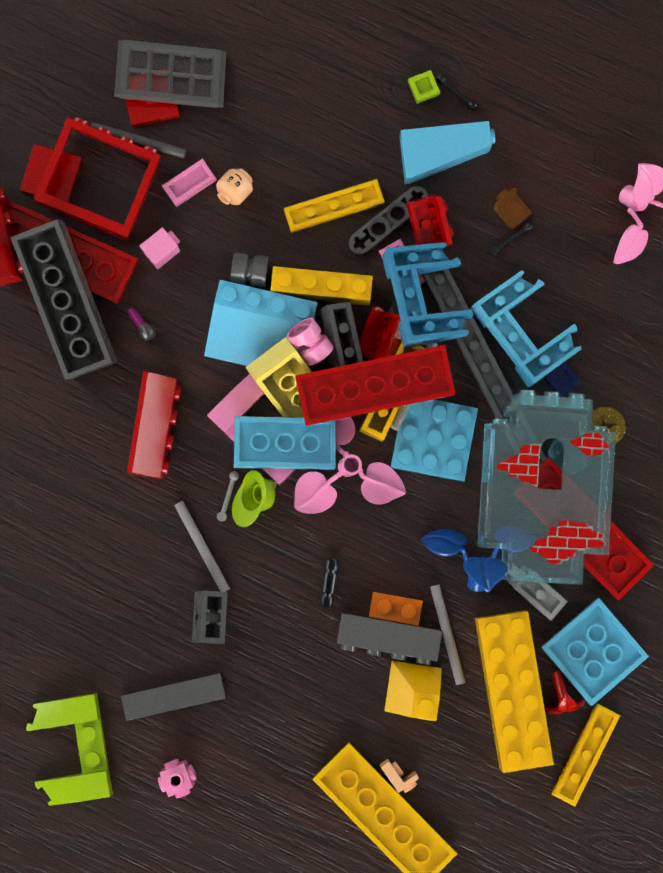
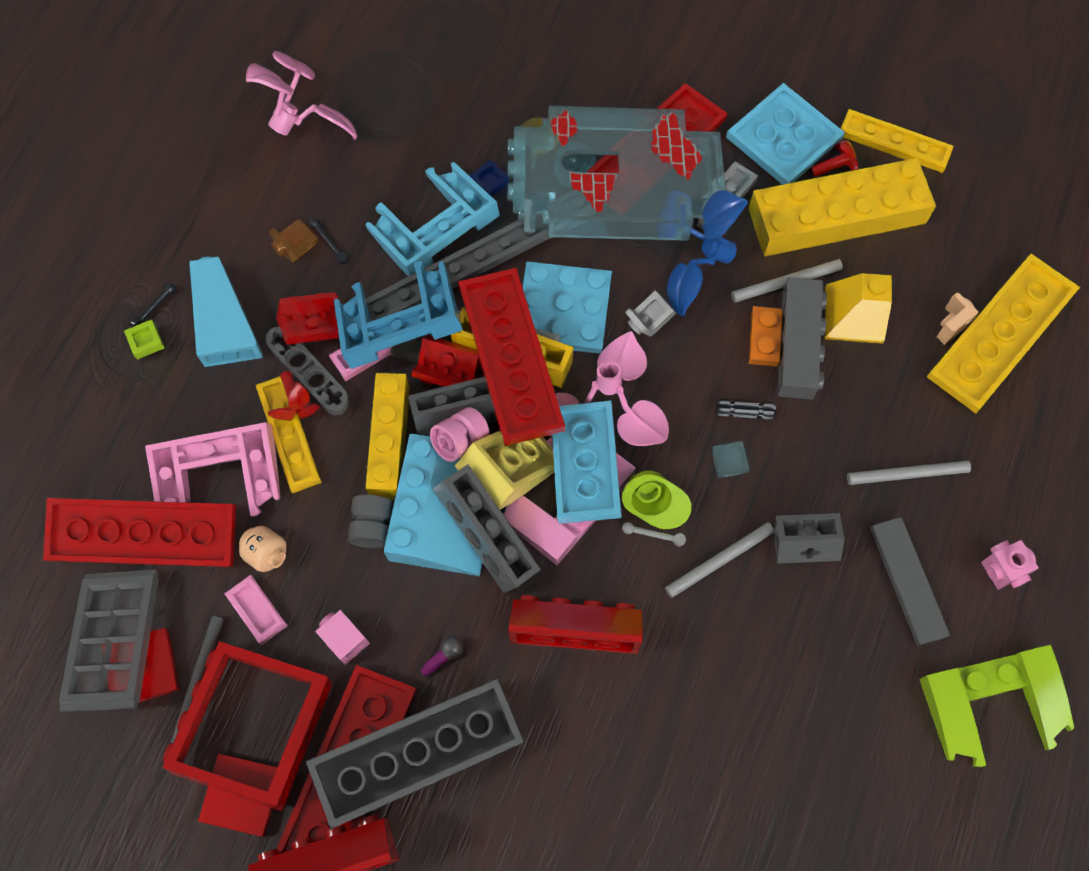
camera: 90 degrees left, 15 degrees down
(232, 360) = (486, 529): none -> dark grey brick
(254, 92) = (139, 532): none -> red plate
(264, 712) = (908, 472): none -> light grey bar
(286, 565) = (730, 459): none -> clear light blue plate
(314, 116) = (250, 444): none -> bright pink wedge
(355, 212) = (297, 400): none -> red plant
(418, 510) = (650, 314): none -> light grey bracket

